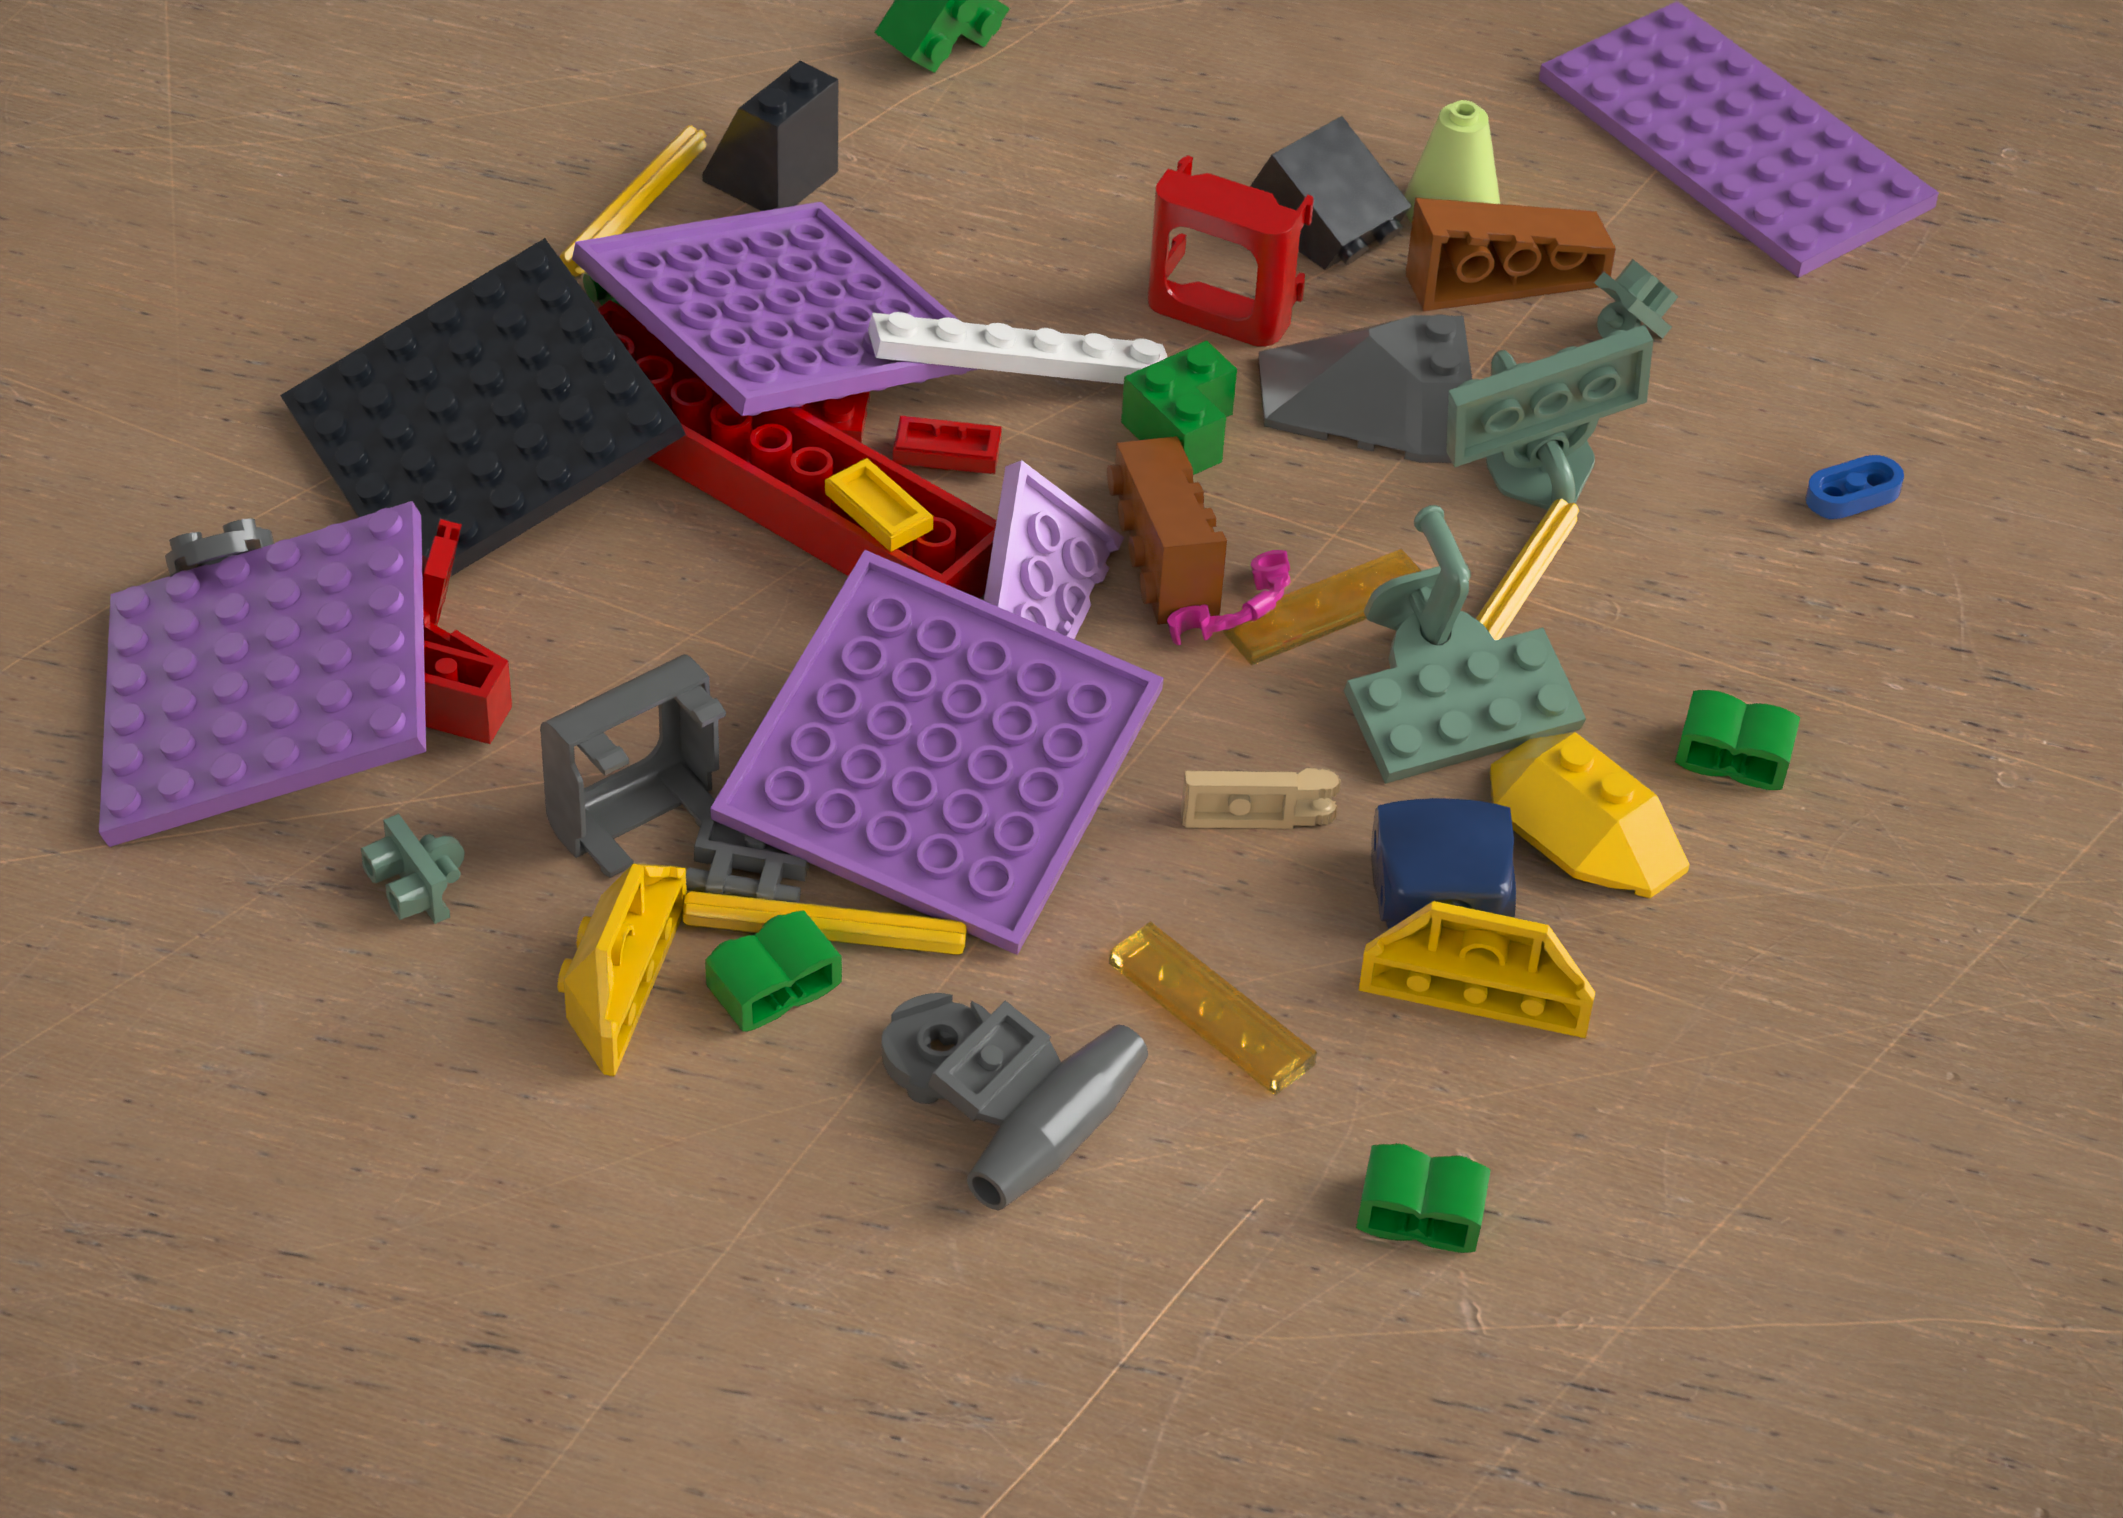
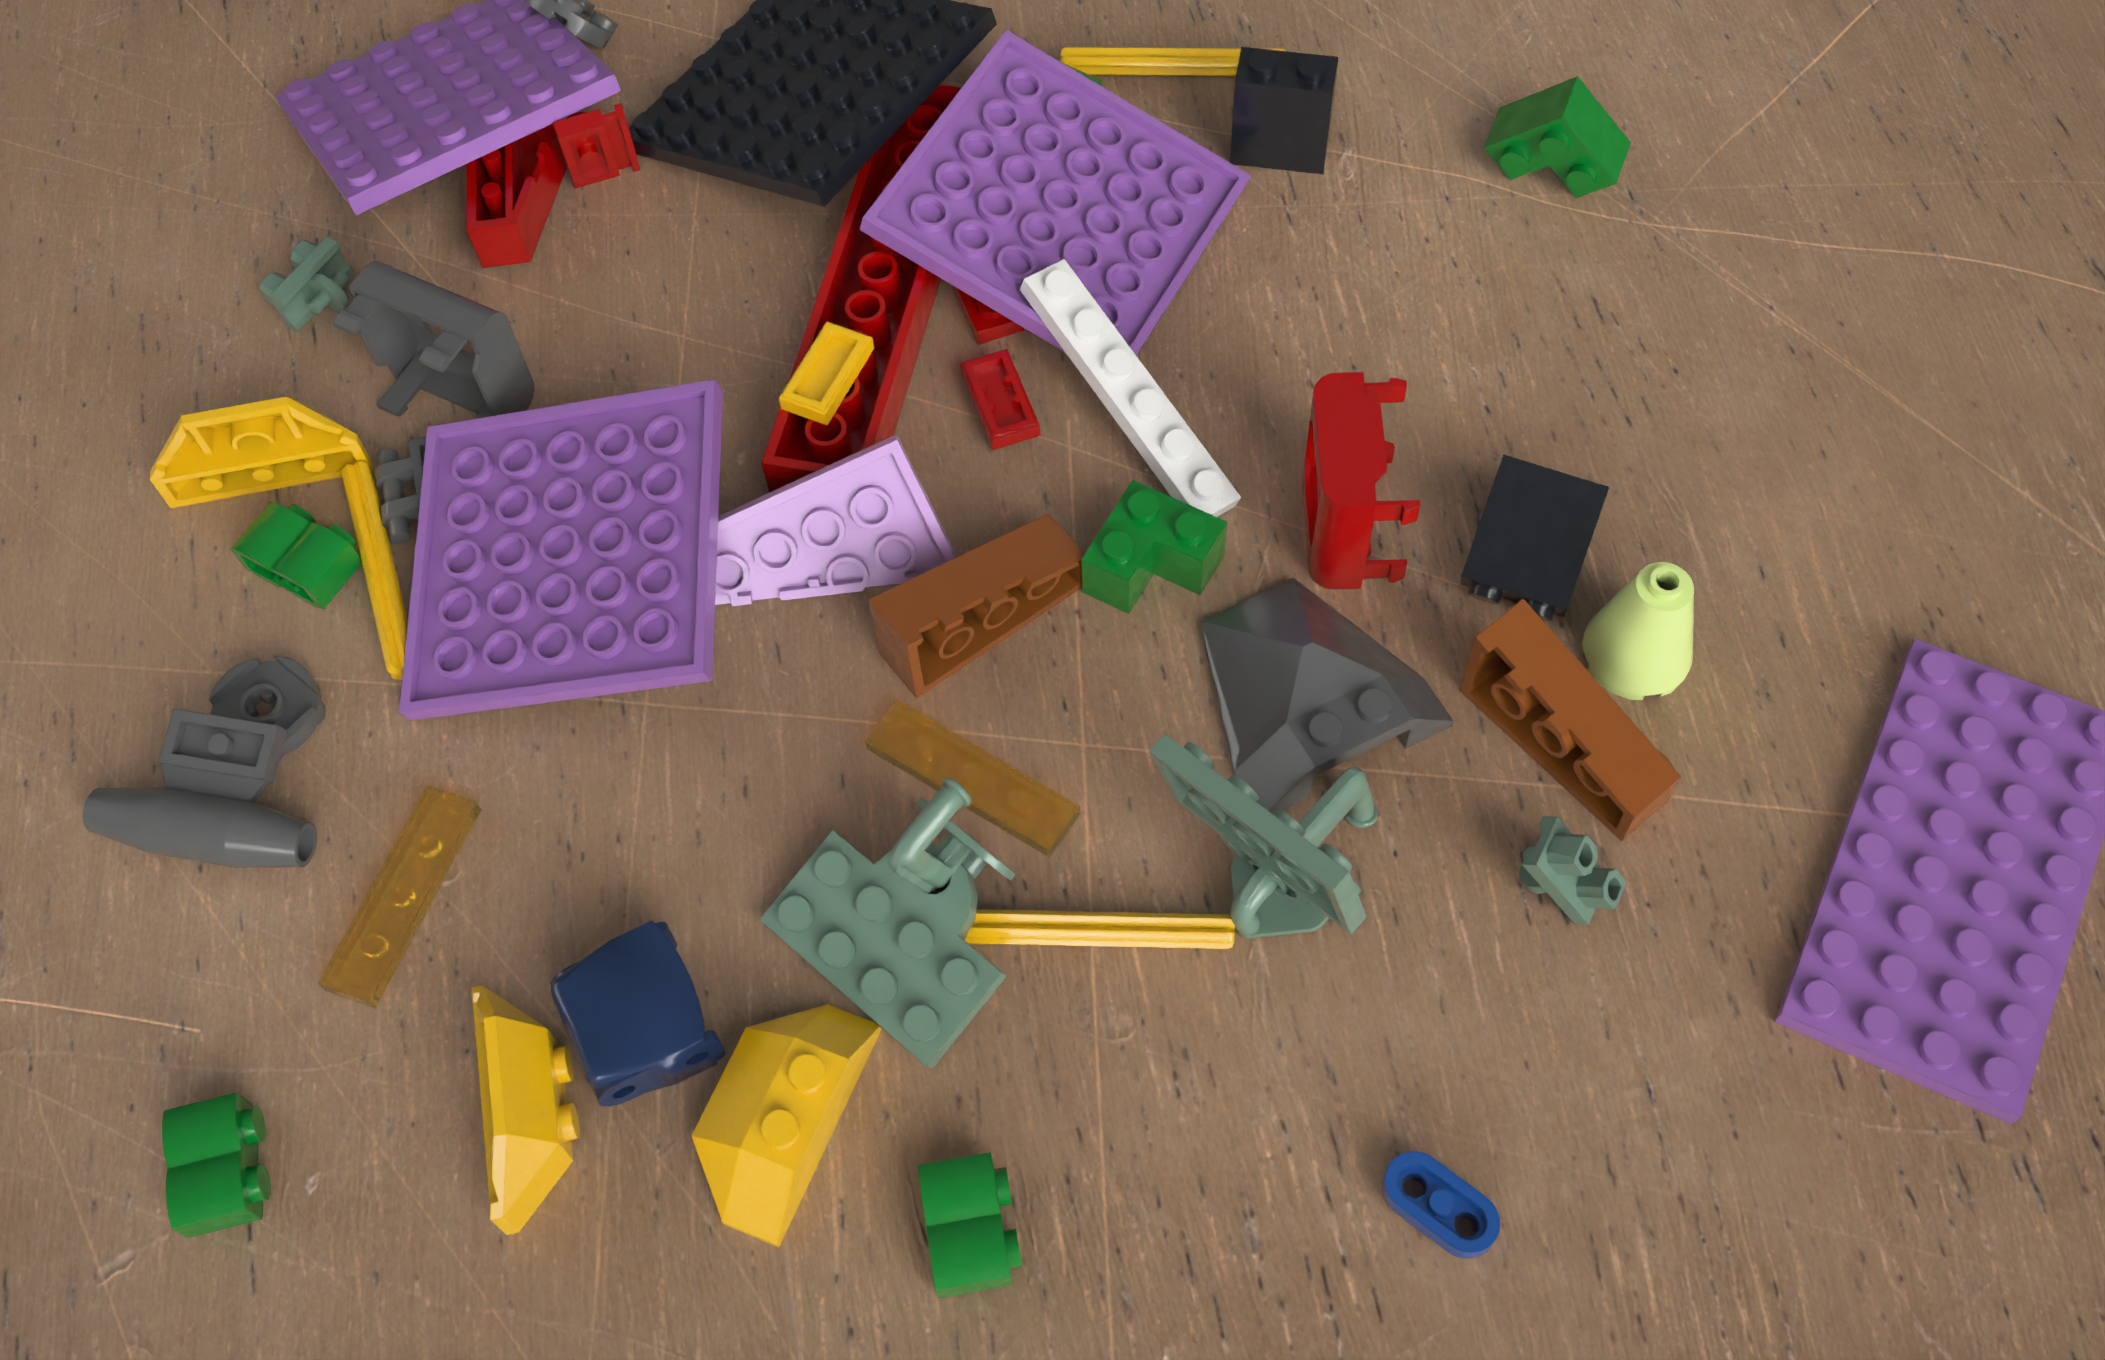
camera: 70 degrees right, 15 degrees up
(1259, 799) = (669, 826): tan hinge -> none
(1268, 571) = (878, 691): dark pink piece -> none

